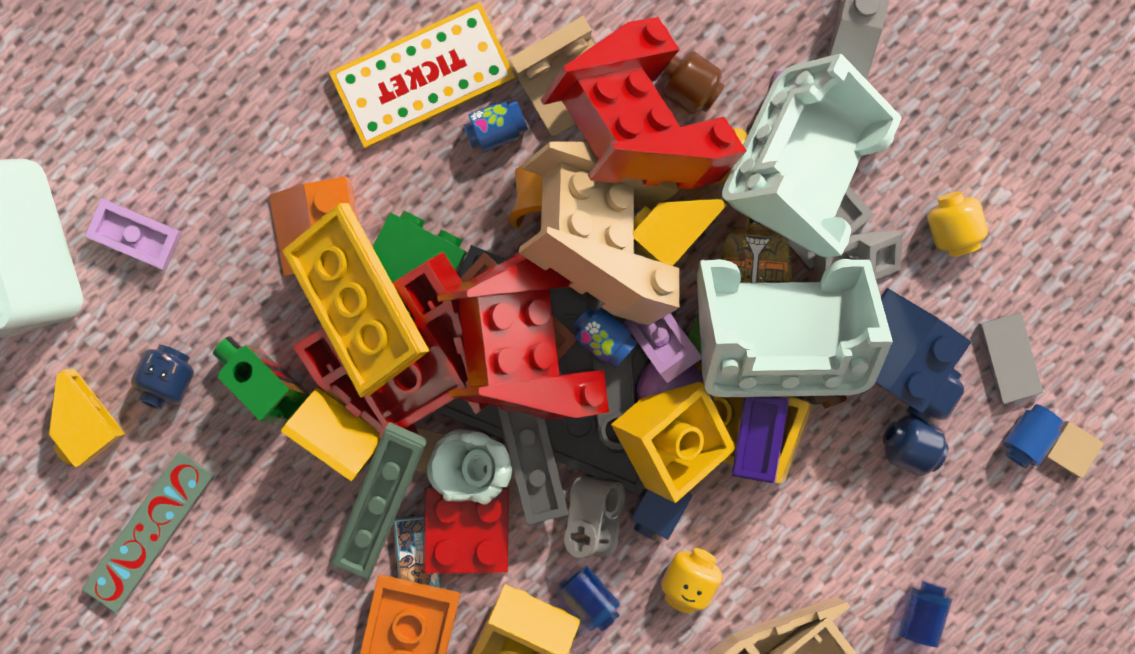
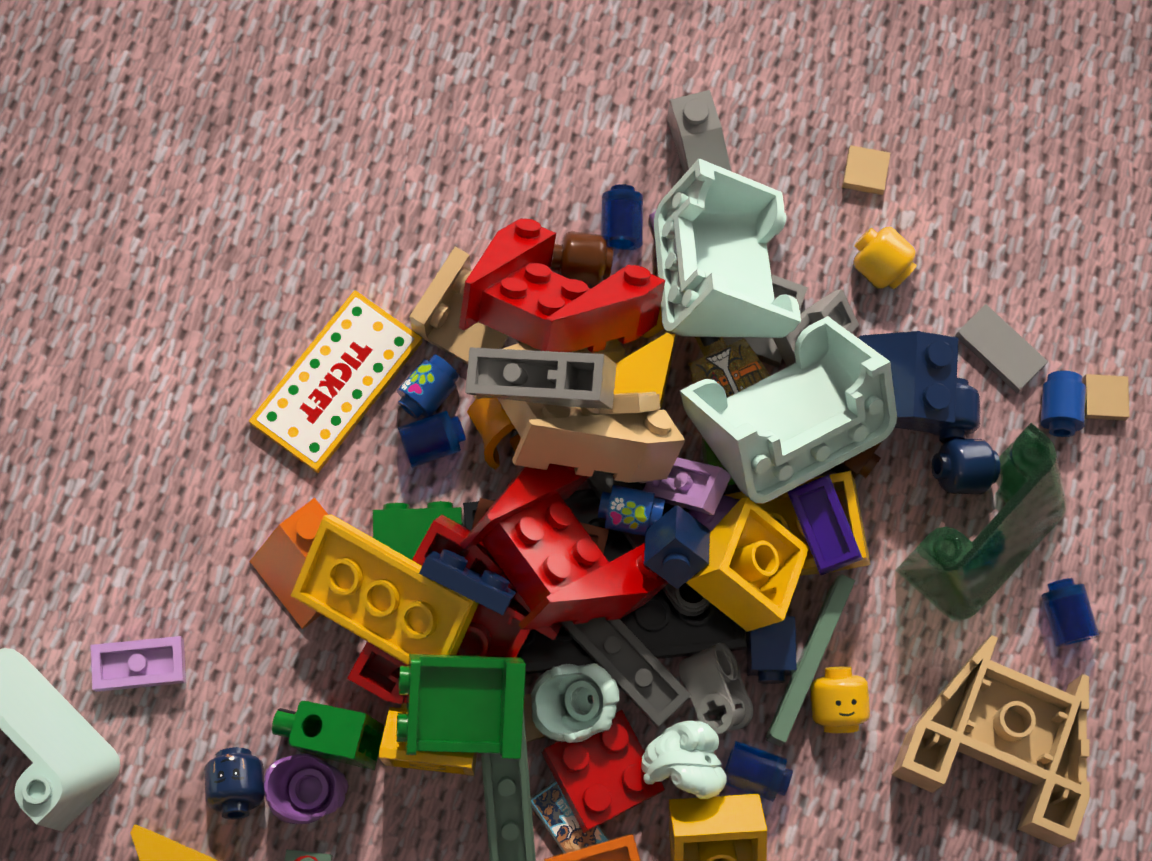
camera: 30 degrees left, 15 degrees down
(213, 414) = (303, 788): none -> medium lavender hair
(369, 428) = (462, 704): none -> green panel
(418, 320) = (451, 571): none -> dark blue plate
(474, 172) = (431, 438): none -> clear blue brick
(536, 564) = (687, 756): none -> light aqua hair
(580, 193) = (542, 377): none -> light grey slope
(621, 393) = (677, 547): none -> dark blue brick
(648, 250) = (633, 403): none -> tan tile
(686, 534) = (809, 660): none -> sand green tile
(749, 61) = (622, 217): none -> clear blue brick
(958, 507) = (965, 574): none -> clear green windscreen
(991, 132) = (866, 170): none -> tan tile

